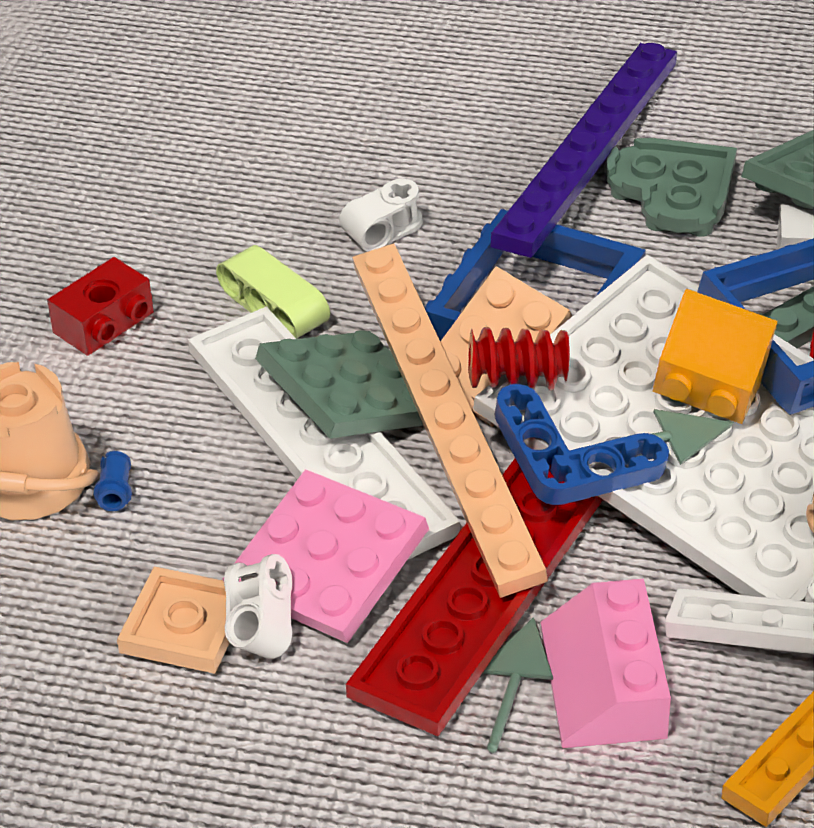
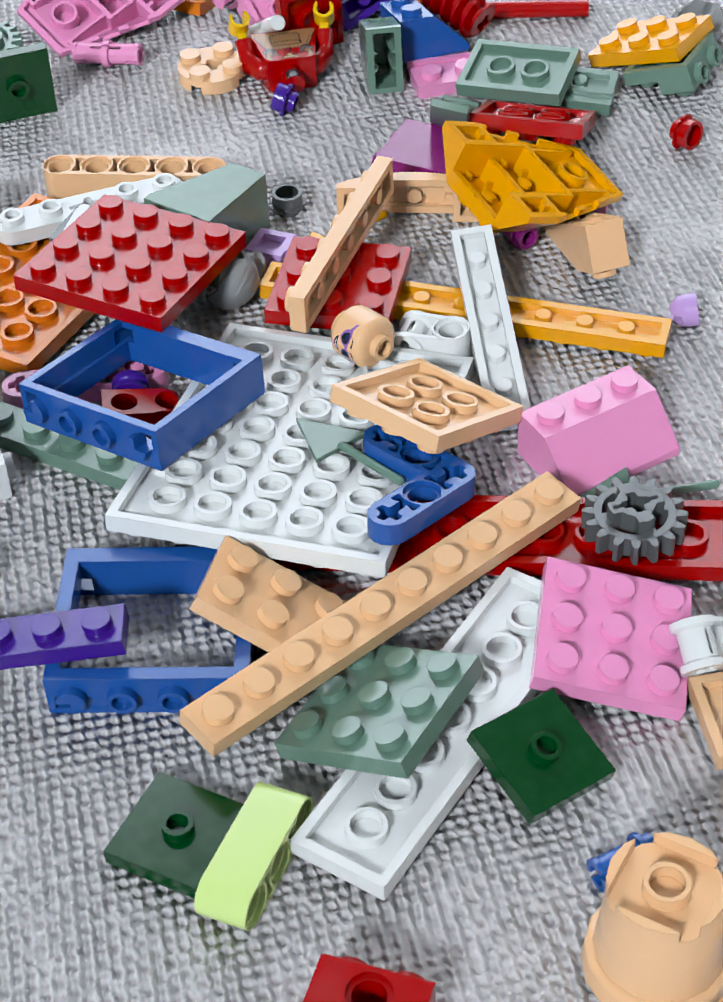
camera: 115 degrees left, 0 degrees up
(239, 464) = (540, 756): none -> dark green plate
(327, 265) = (172, 833): none -> dark green plate
(380, 218) = (71, 805): white piece -> none
(439, 606) = (634, 520): none -> dark grey gear
(518, 357) = (342, 520): red piece -> none
(674, 492) = (426, 405): none -> light nougat plate
(714, 356) = (263, 413): light orange slope -> none

